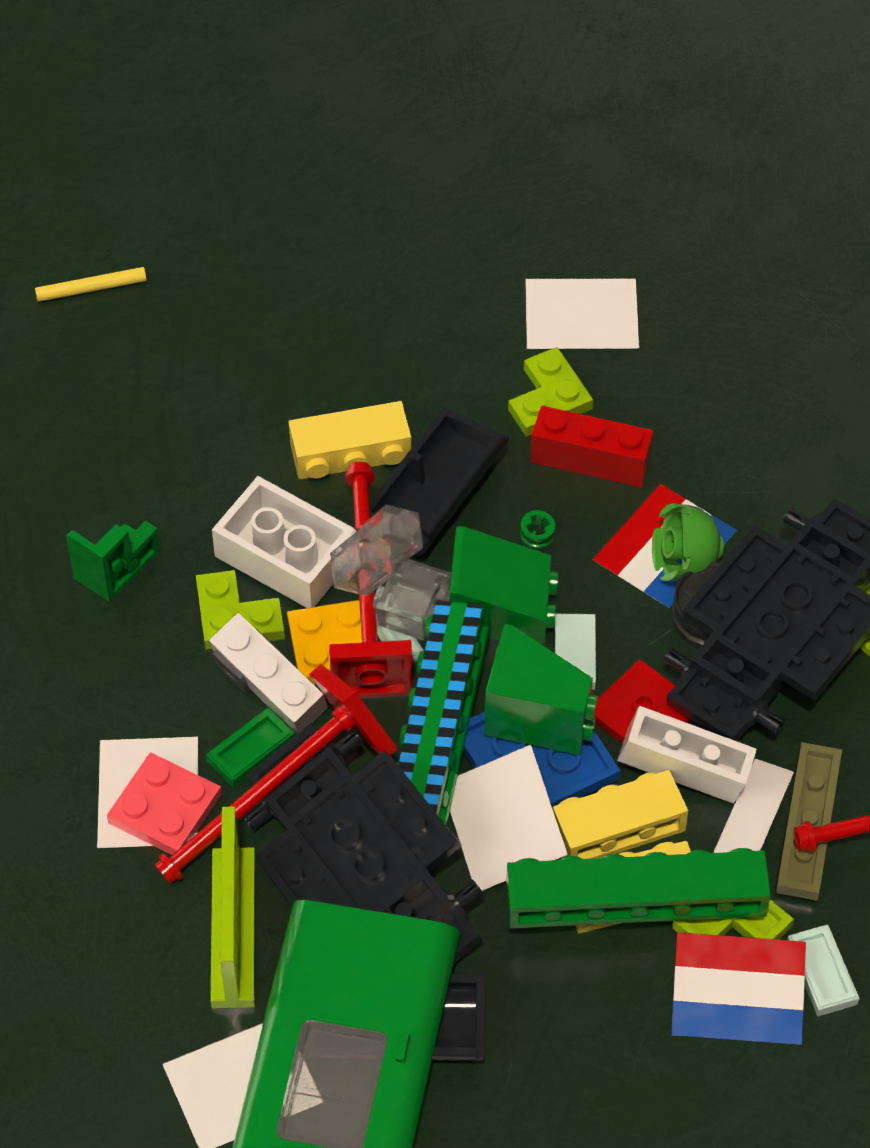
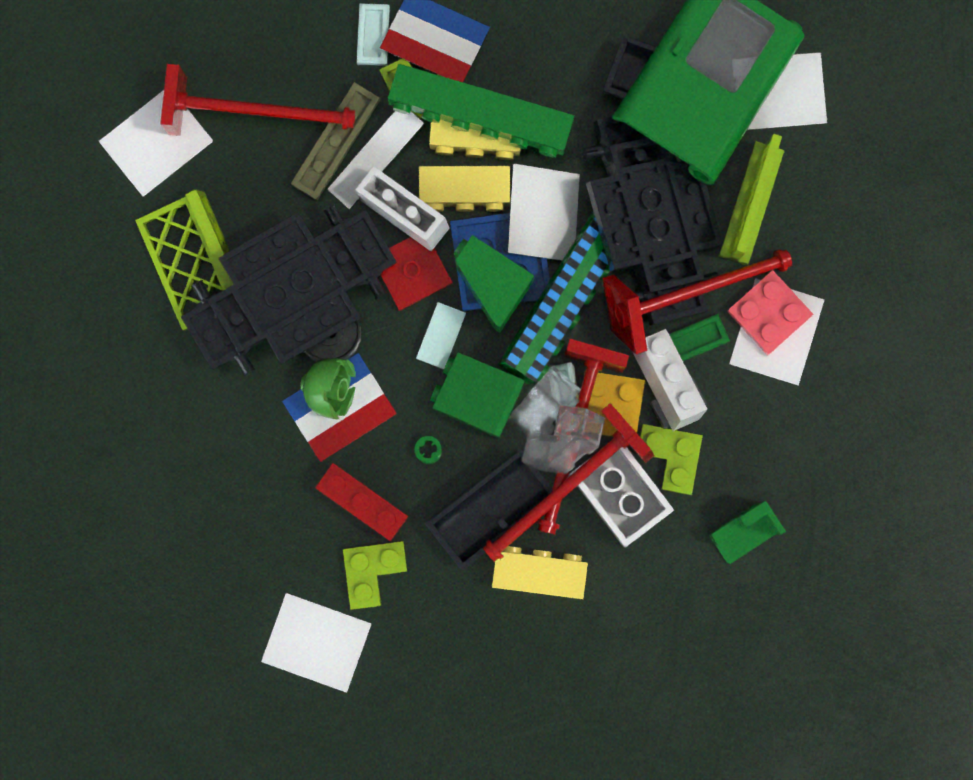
camera: 160 degrees left, 30 degrees up
(304, 581) = (623, 437): none -> red tile

